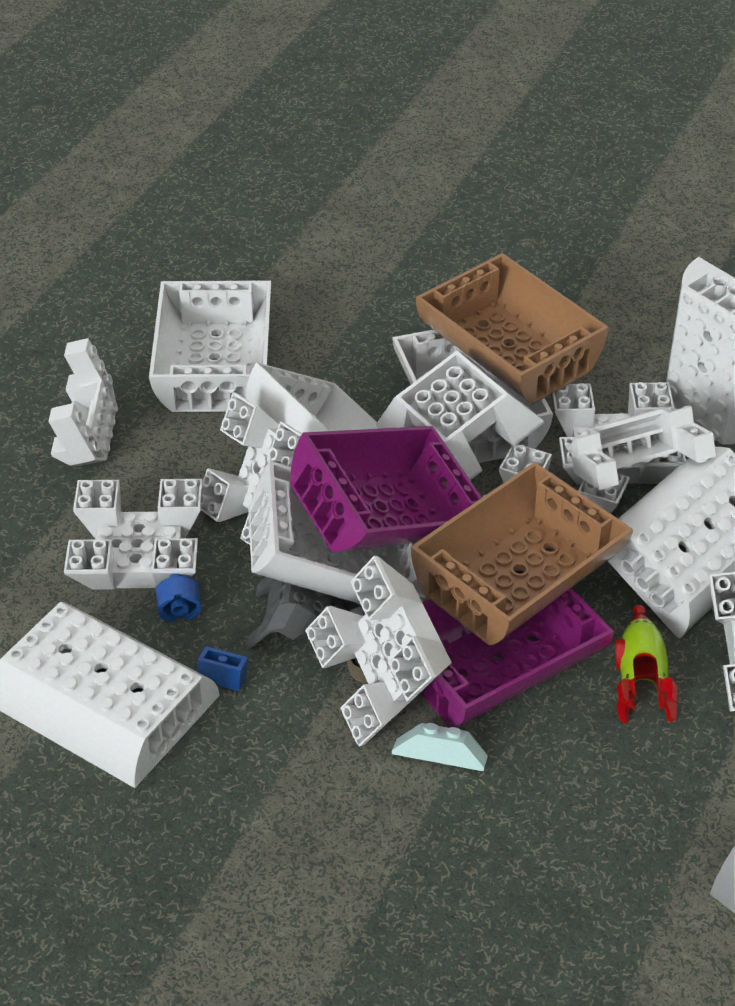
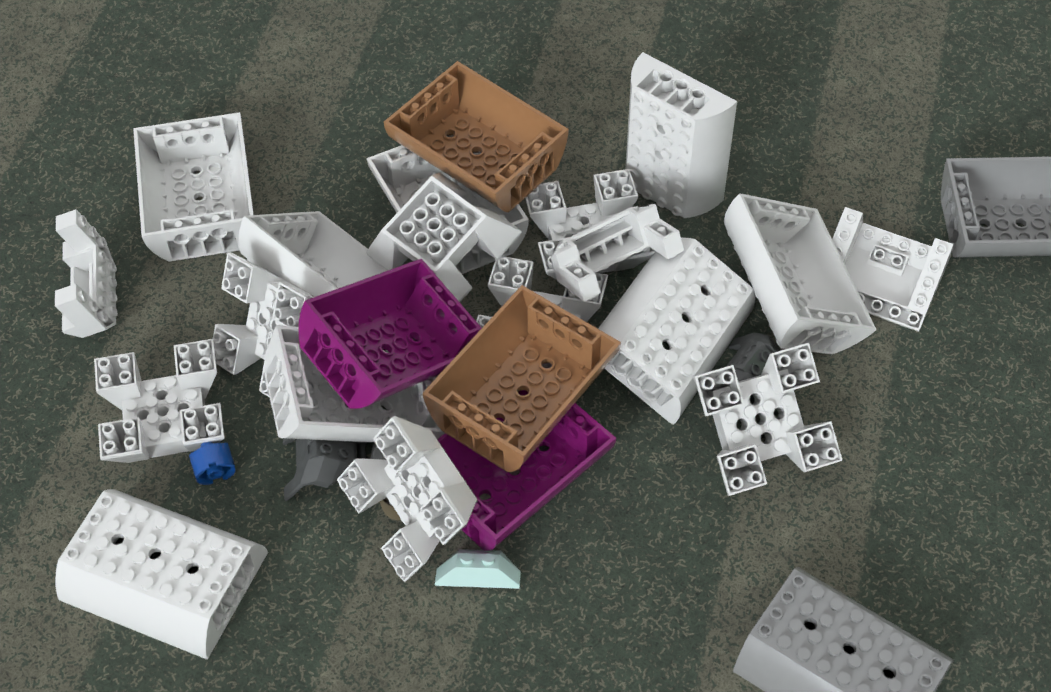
camera: 10 degrees left, 10 degrees up
(223, 667) = (266, 527): blue brick -> none
(643, 656) = (642, 452): piece -> none

